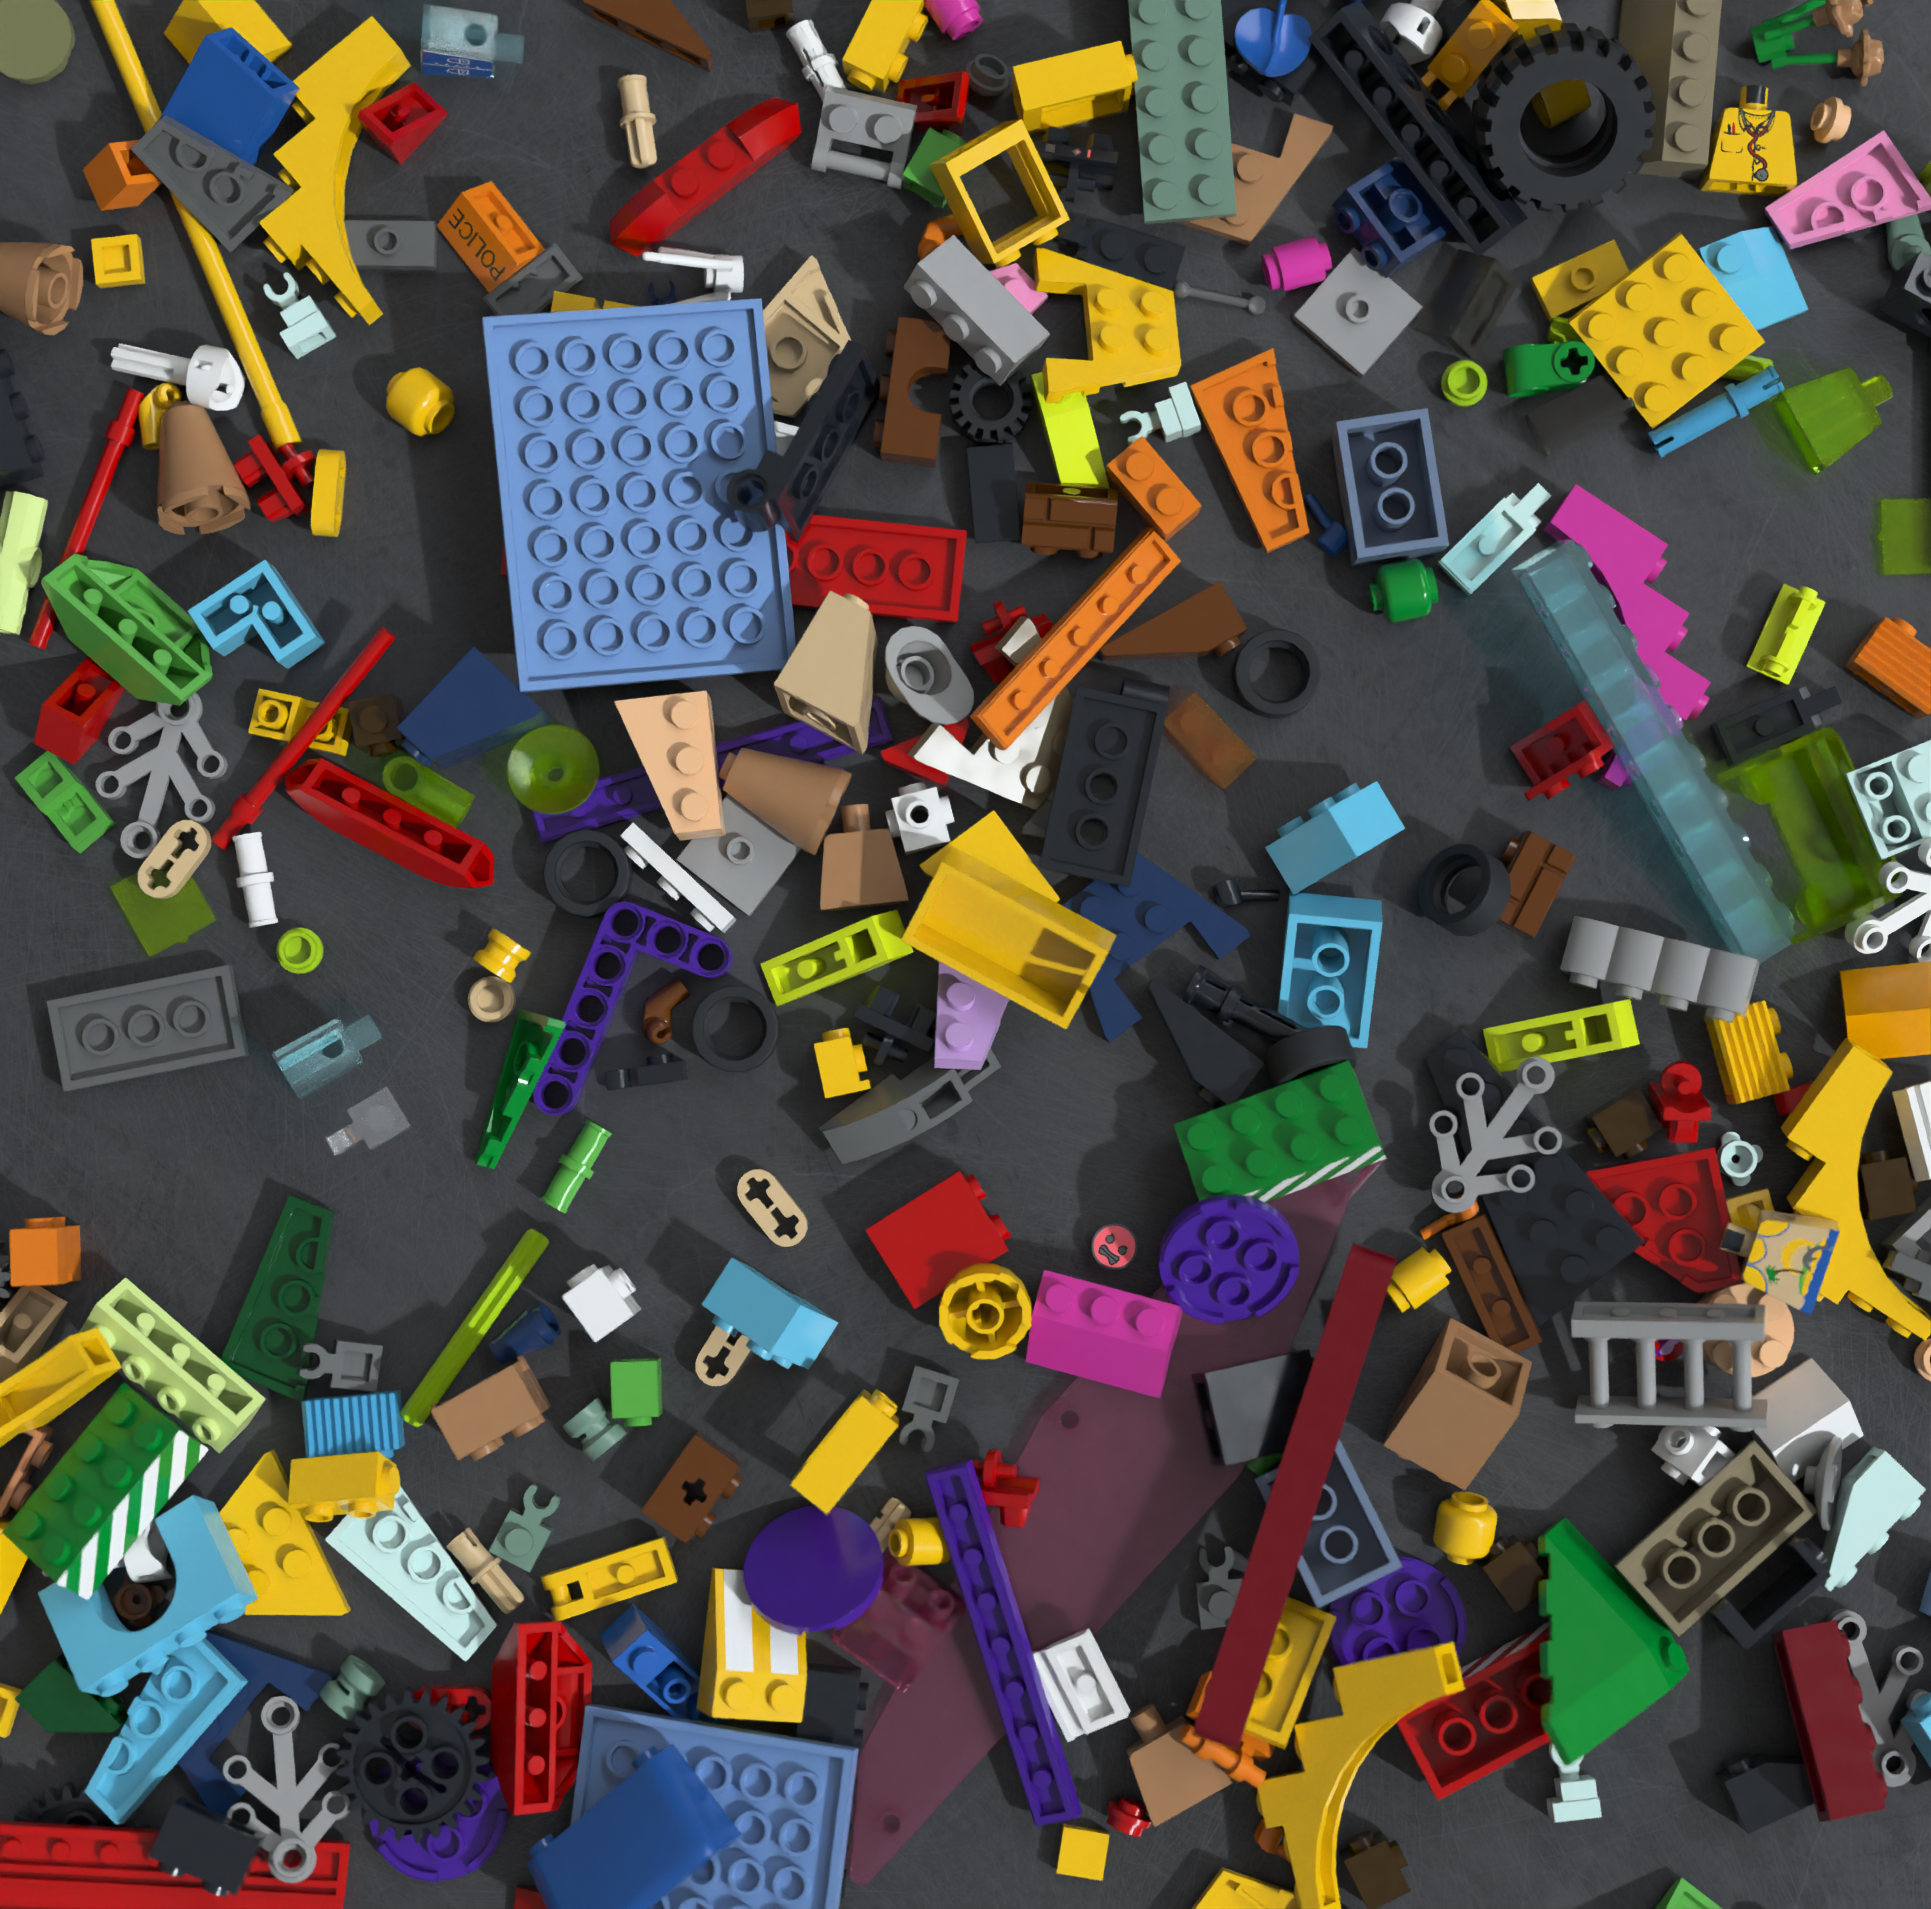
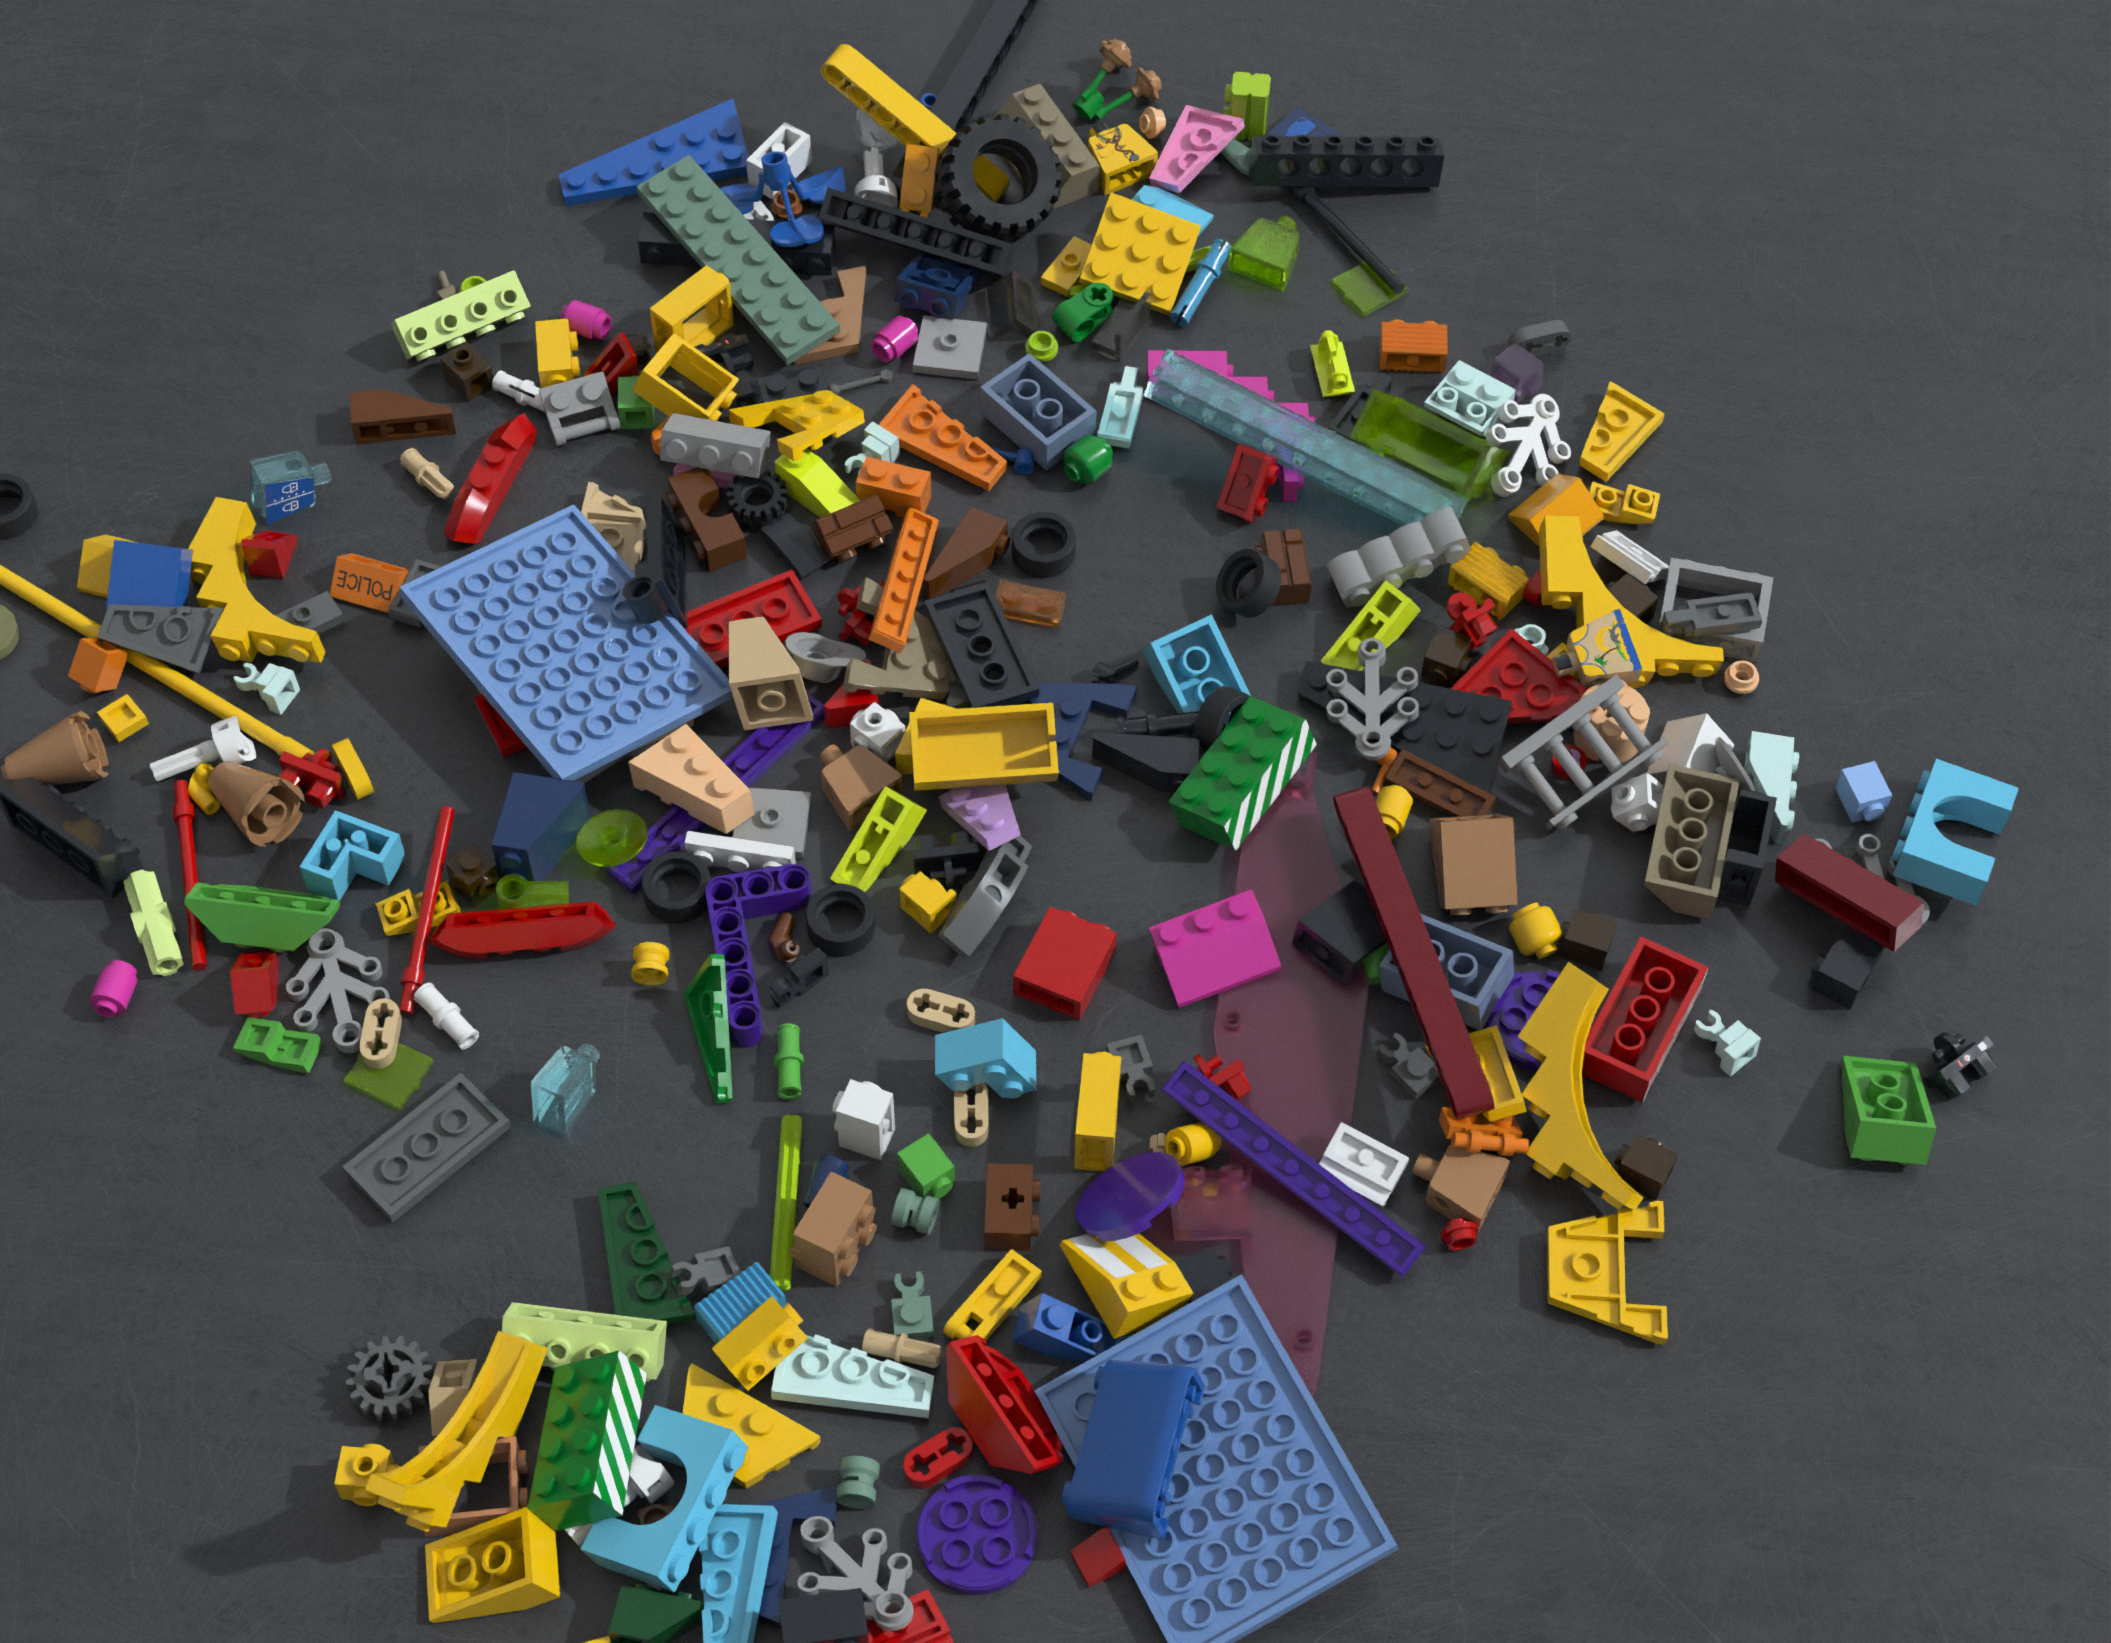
camera: 30 degrees left, 30 degrees down
(45, 1252) = (443, 1317): orange brick -> none
(299, 950) = (505, 1042): lime plate -> none
(374, 1120) = (626, 1112): clear plate -> none
(384, 1795) = (932, 1530): black gear -> none
(420, 402) = (382, 686): yellow head -> none
(491, 999) = (660, 999): tan tile -> none
(721, 272) = (532, 515): white plant -> none
(787, 793) = (780, 760): medium nougat cone -> none
(985, 1311) = (1128, 974): yellow cylinder -> none
(1082, 1852) = (1447, 1280): yellow tile -> none
(1114, 1246) = (1182, 902): tile -> none
(1228, 1259) = (1262, 849): dark purple tile -> none
(1270, 1839) = (1562, 1195): orange hand -> none
(1333, 835) = (1144, 598): medium azure brick -> none
(1604, 1648) = (1689, 935): green slope -> none

